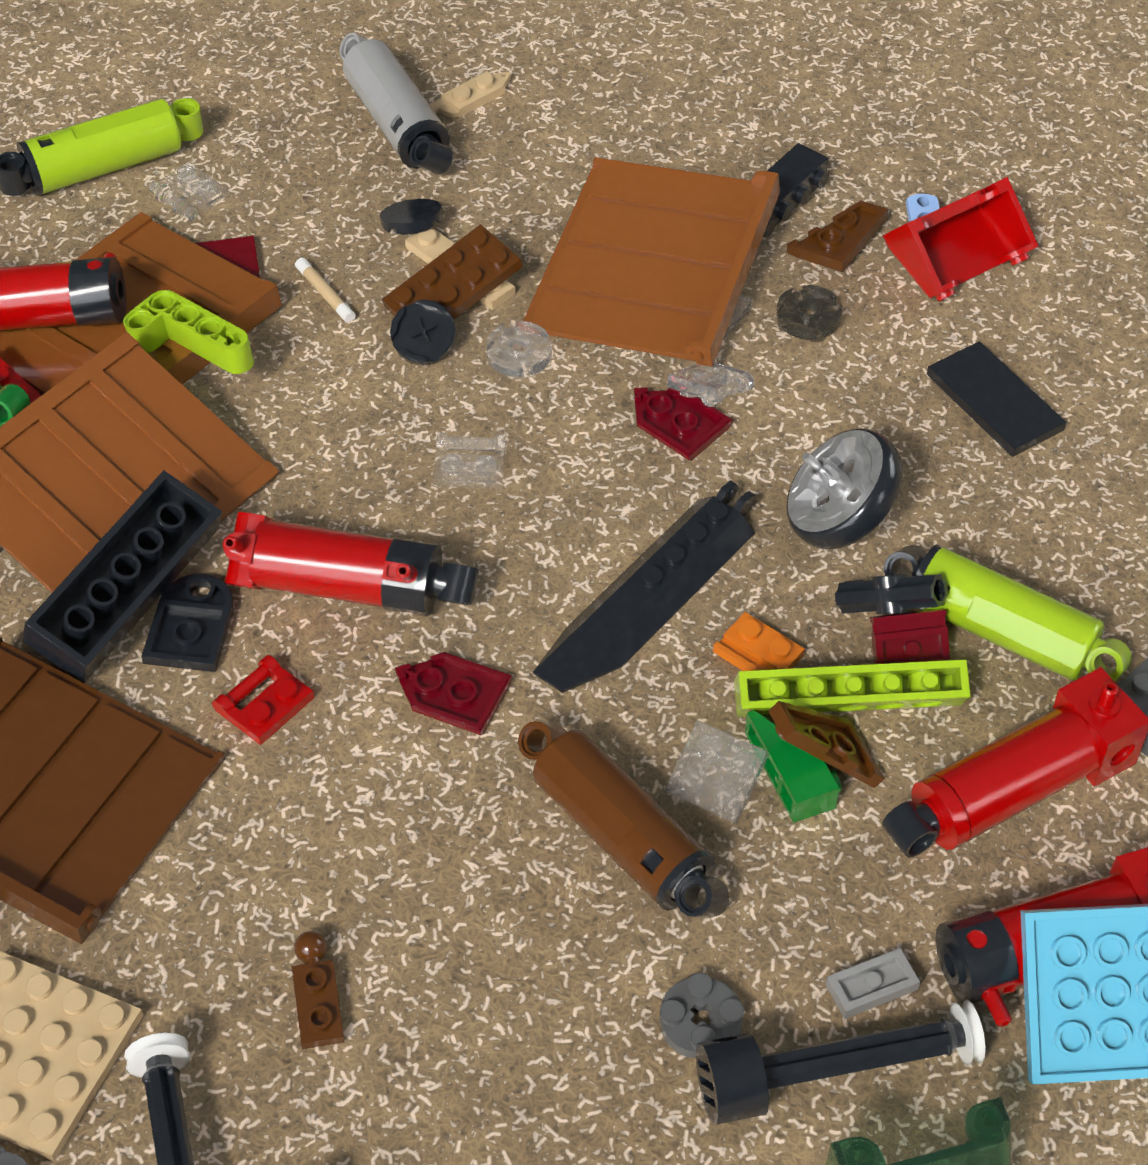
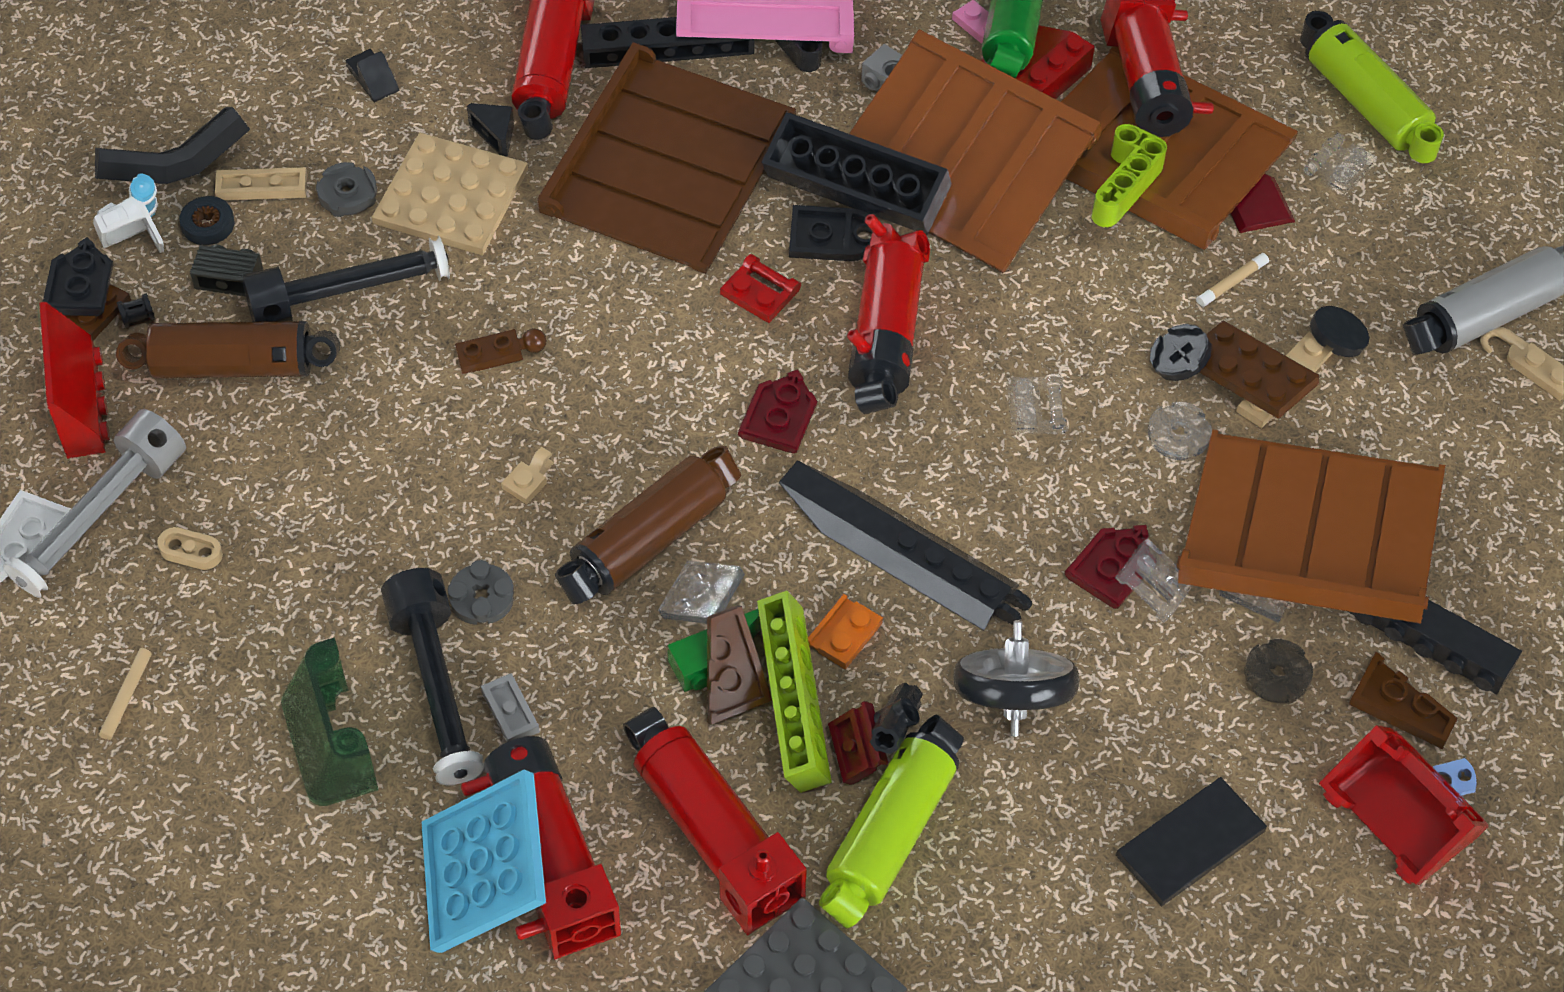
camera: 85 degrees right, 5 degrees up
(529, 963) = (529, 480): none -> tan plate

